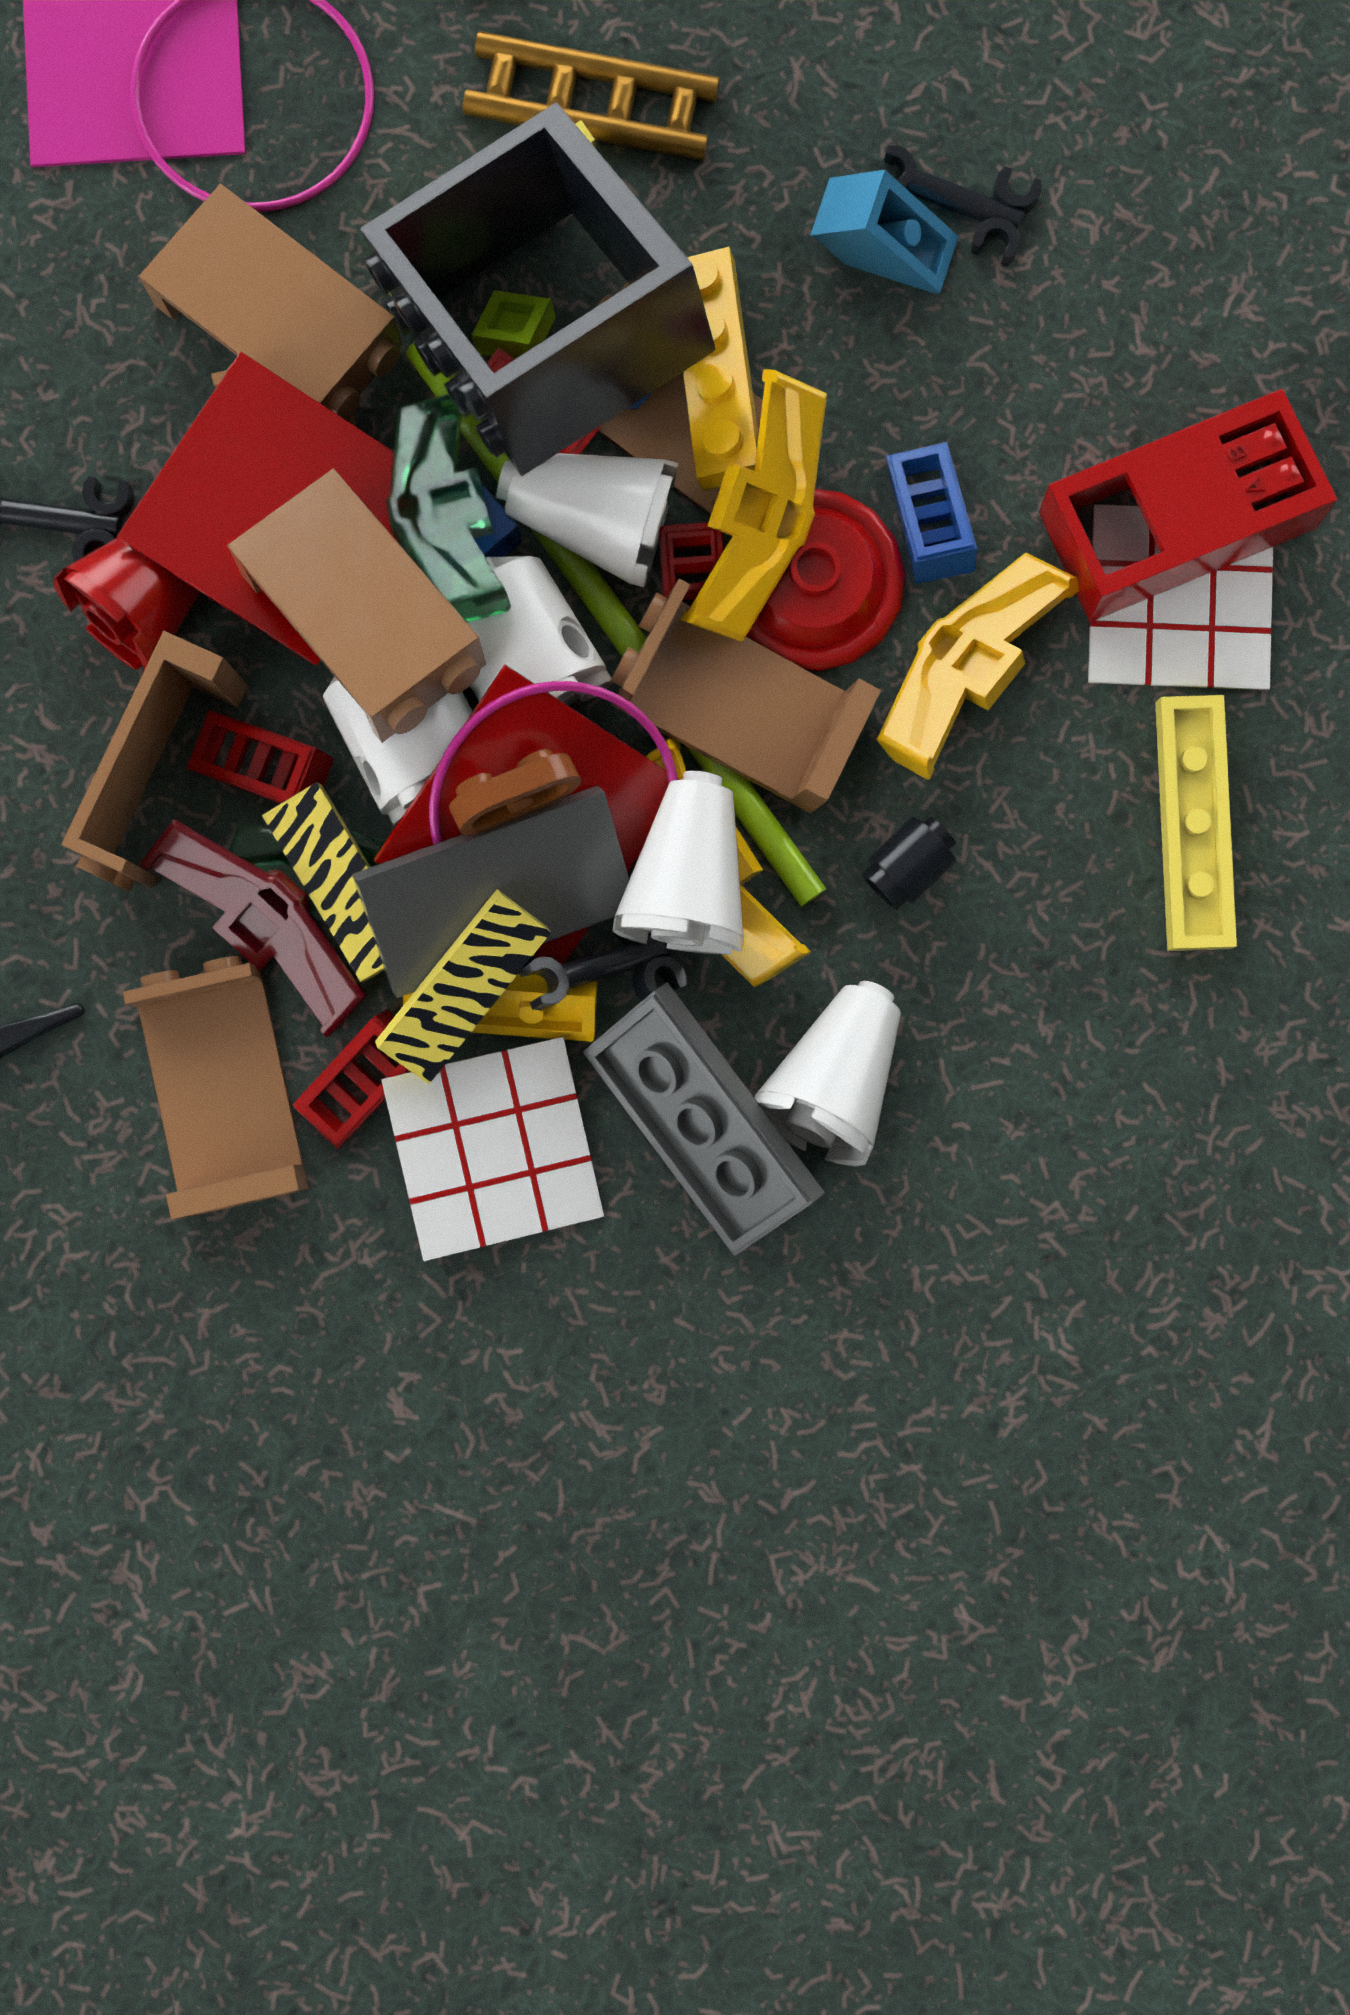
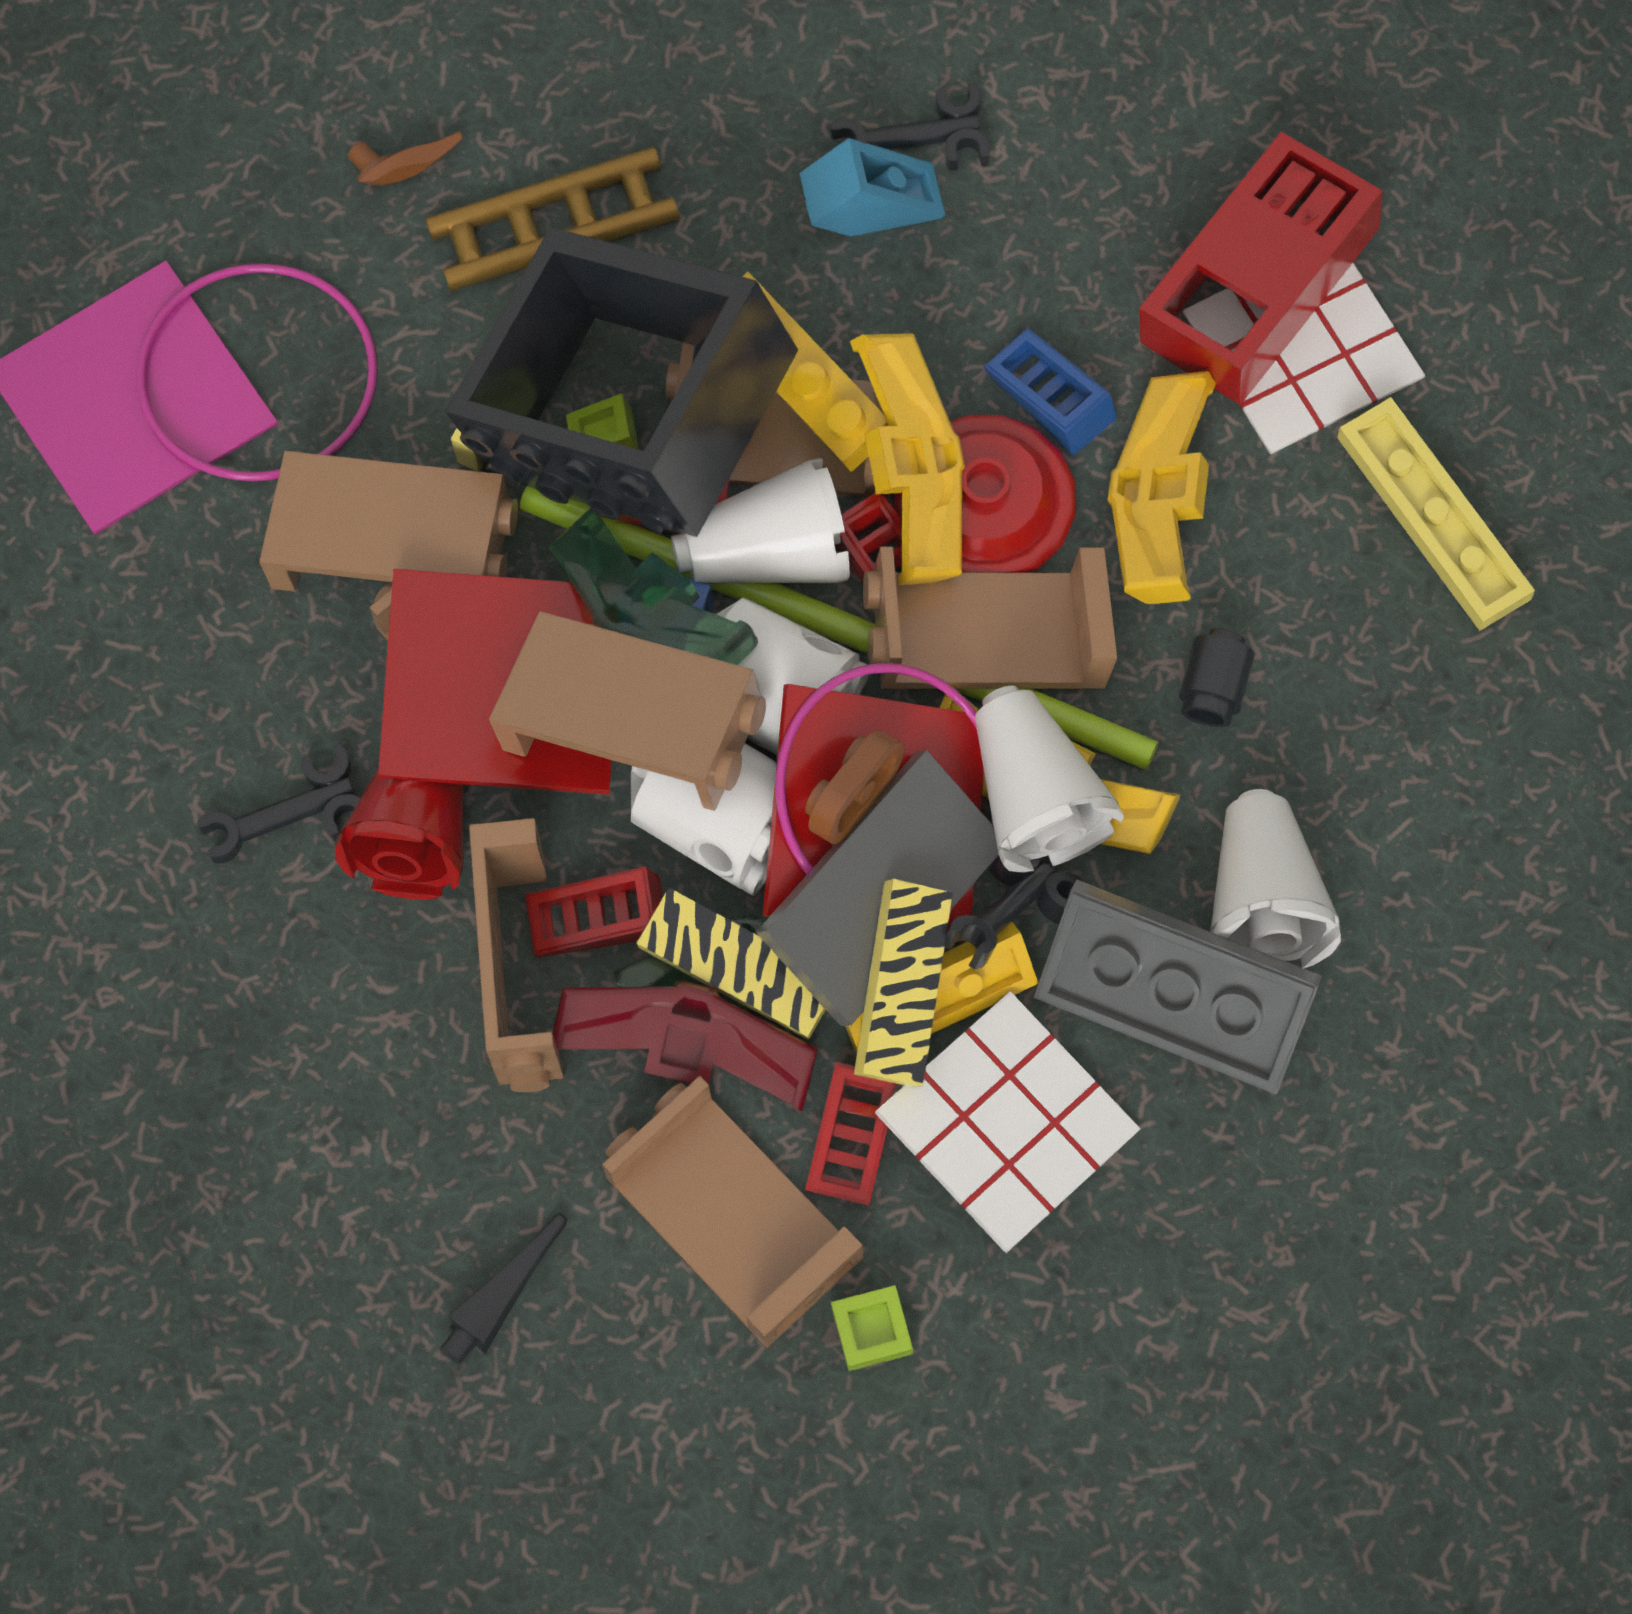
camera: 25 degrees left, 15 degrees down
(274, 1257) = (872, 1328): none -> lime plate

